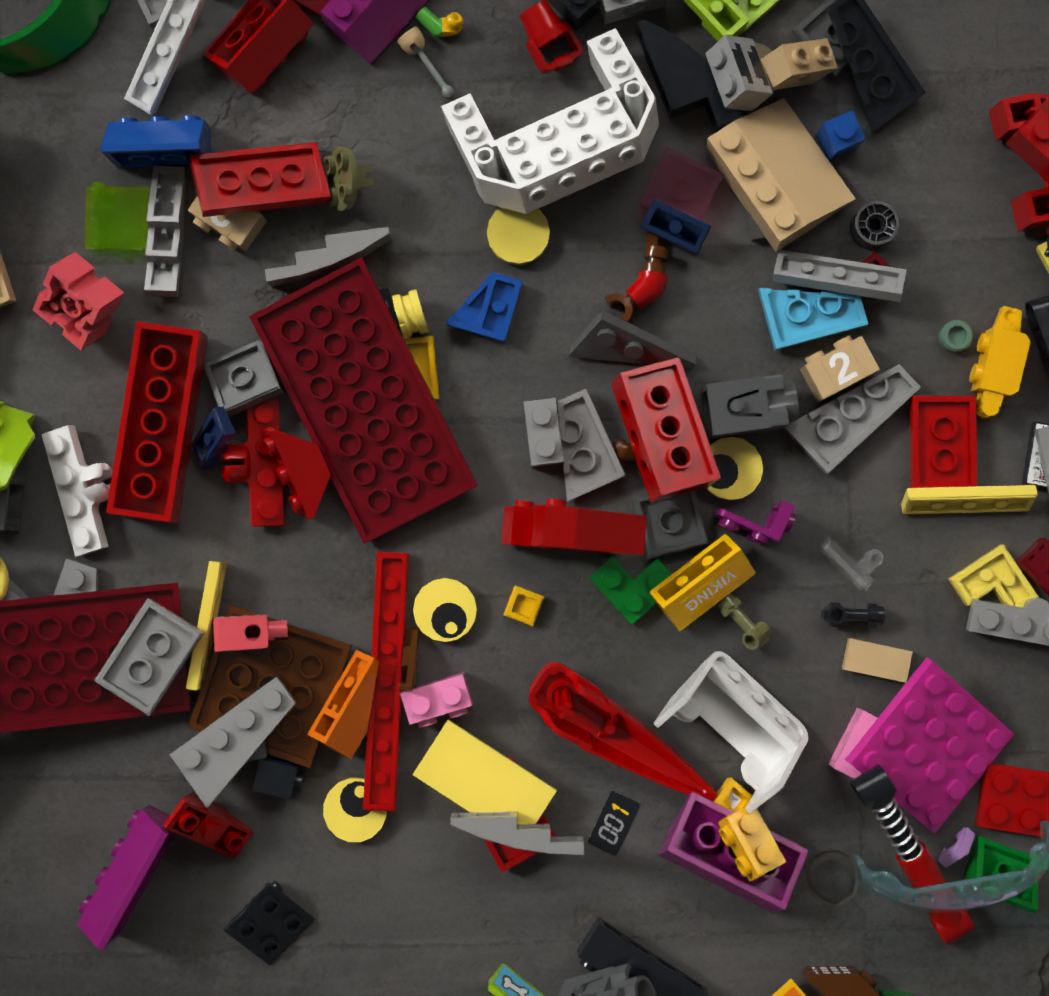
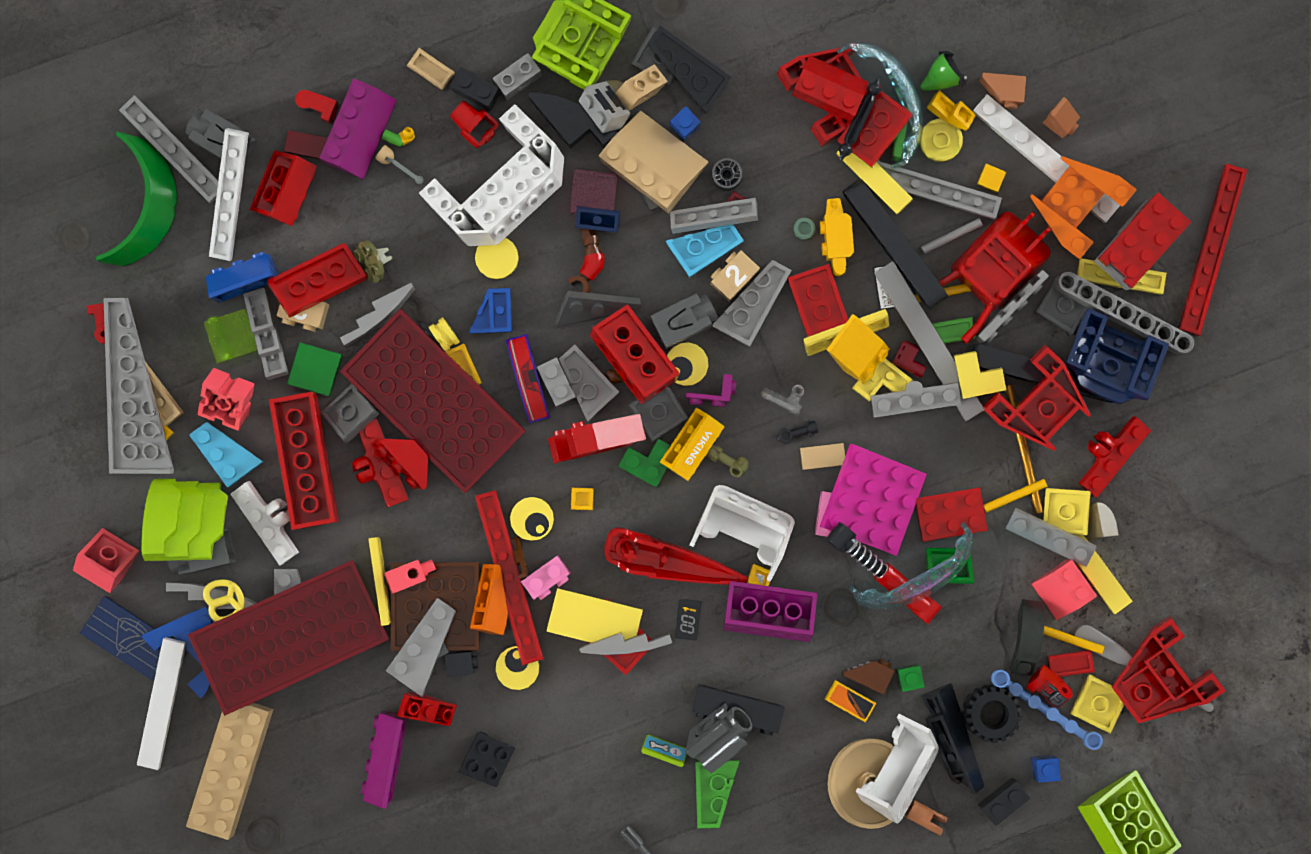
camera: 20 degrees left, 0 degrees up
(52, 378) = (224, 454): none -> medium azure wing
(149, 656) = (351, 612): light grey tile -> none
(213, 438) = (343, 458): dark blue plate -> none
(216, 302) = (314, 369): none -> green tile
(504, 414) = (527, 378): none -> slope
(751, 843) = (777, 600): yellow bracket -> none
(959, 849) = (914, 560): lavender tile -> none
(981, 530) = (858, 349): none -> yellow slope

